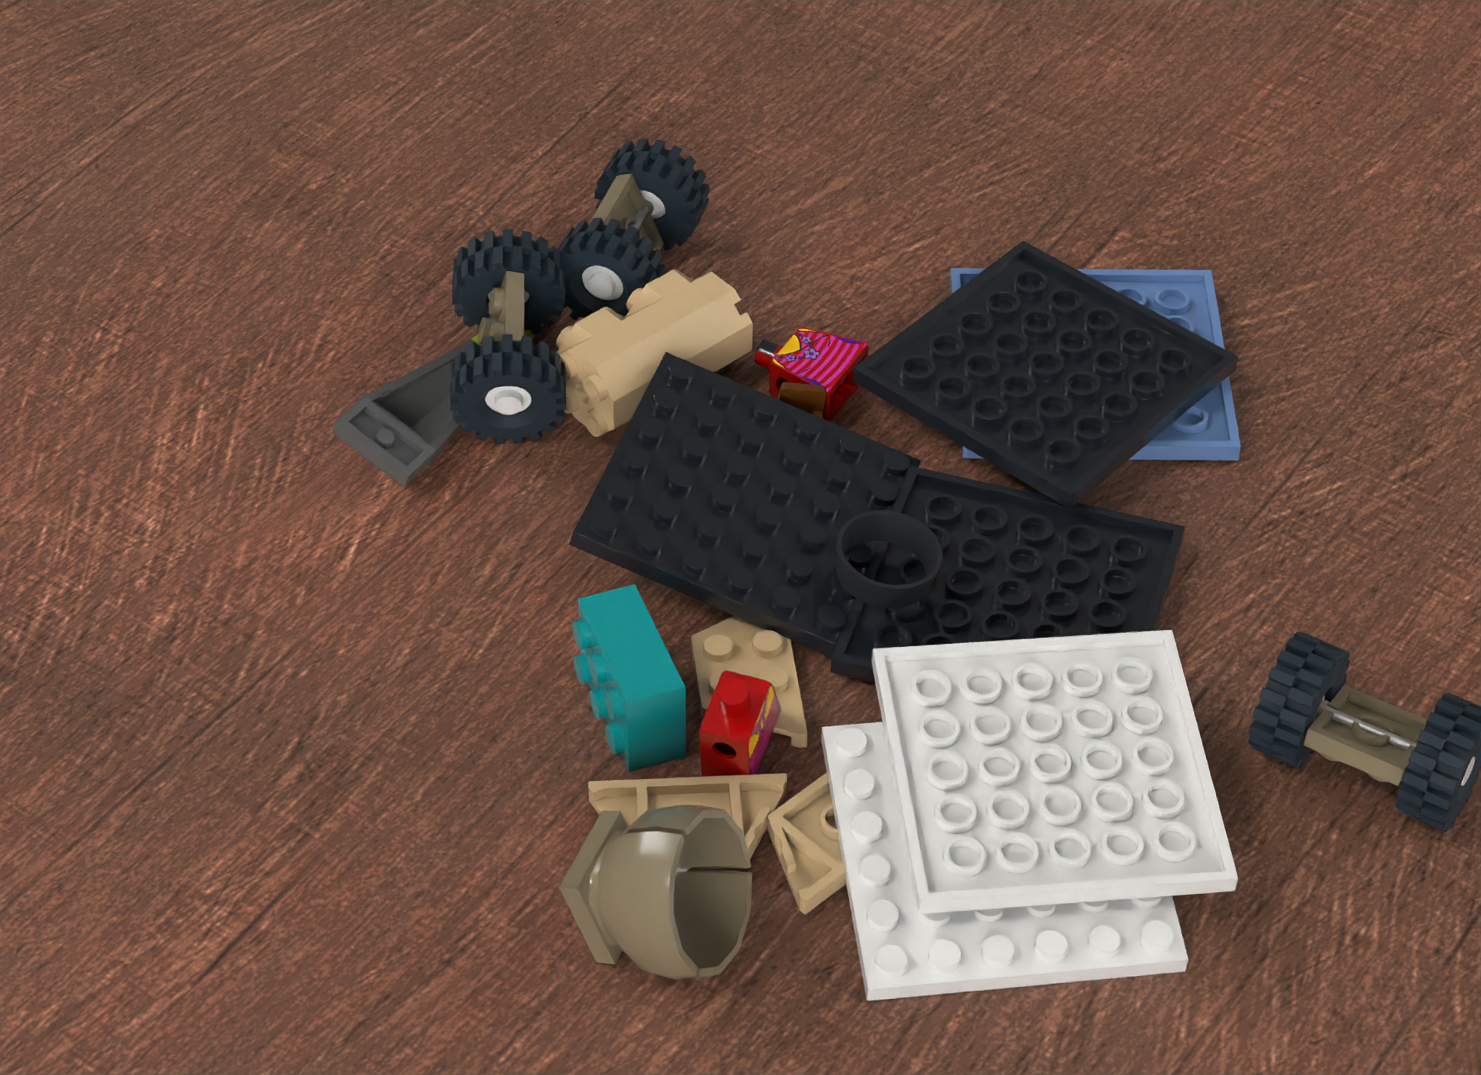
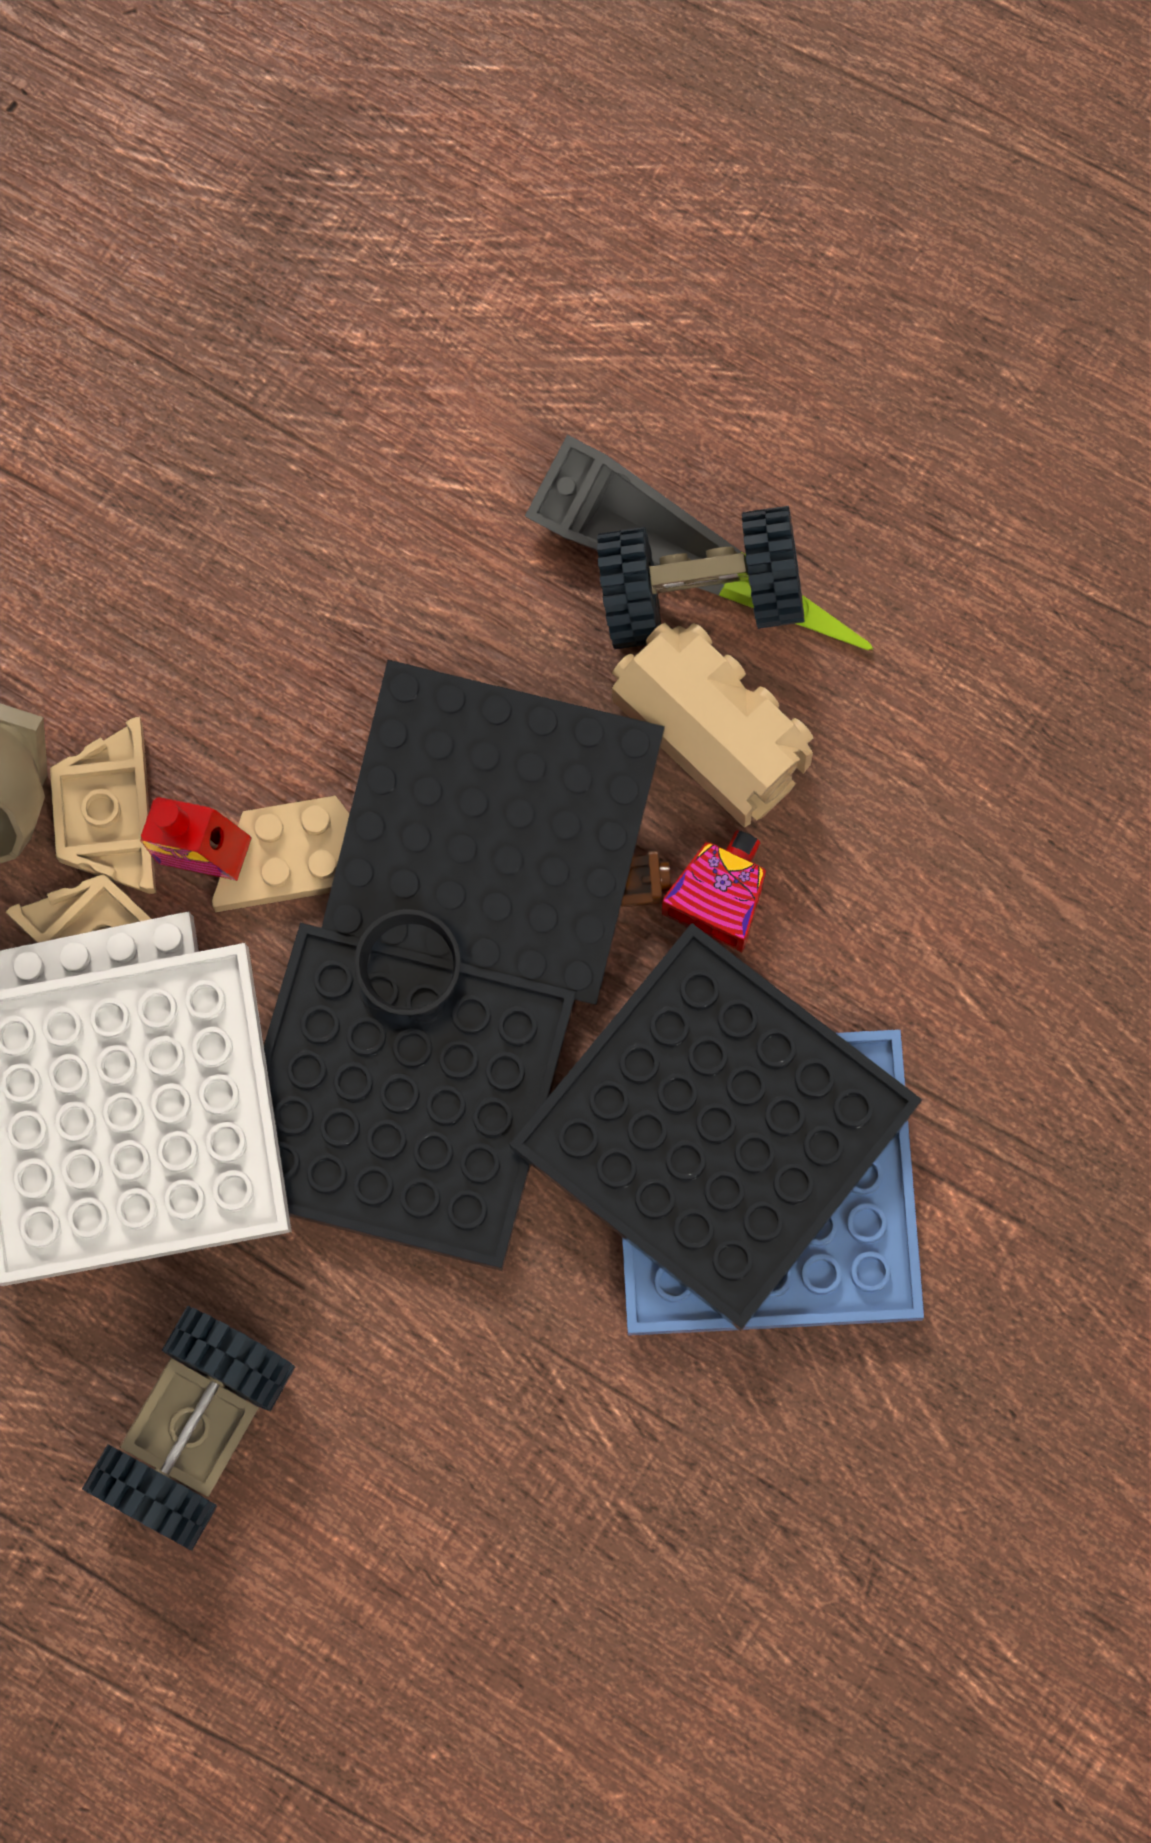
camera: 90 degrees right, 30 degrees up
(630, 678) = (249, 737): teal brick -> none
(644, 203) = (891, 683): black plate -> none

